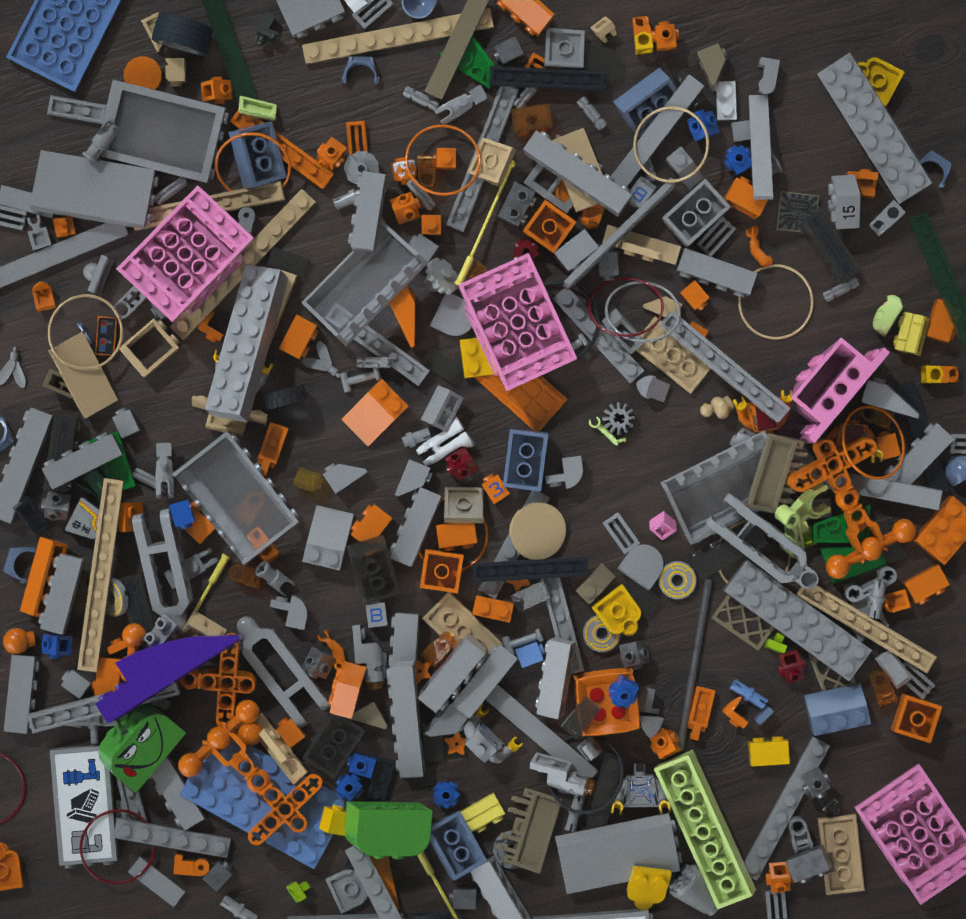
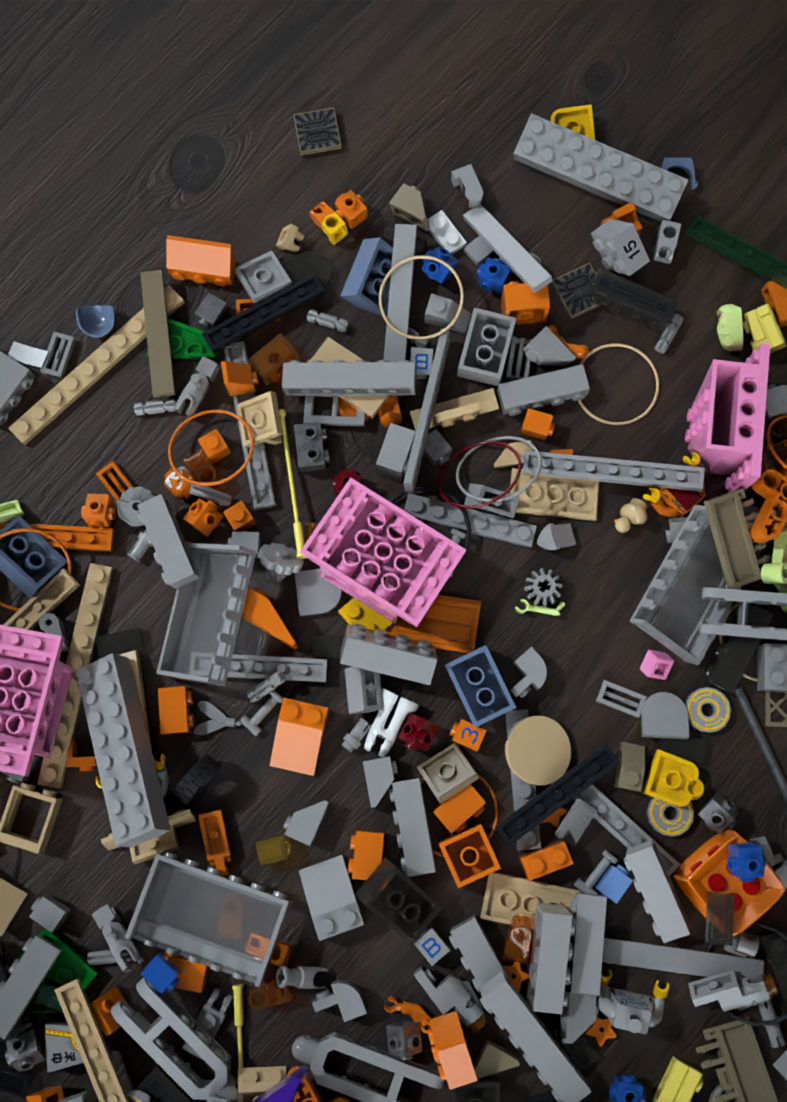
camera: 30 degrees left, 10 degrees down
(367, 61) = (74, 409): sand blue helmet -> none
(475, 395) = (388, 654): none -> light grey brick
(496, 120) = (239, 378): none -> orange slope
(525, 96) = (254, 343): light grey axle -> none
(549, 227) = (355, 446): orange brick -> none
(739, 243) = (548, 350): none -> light grey slope

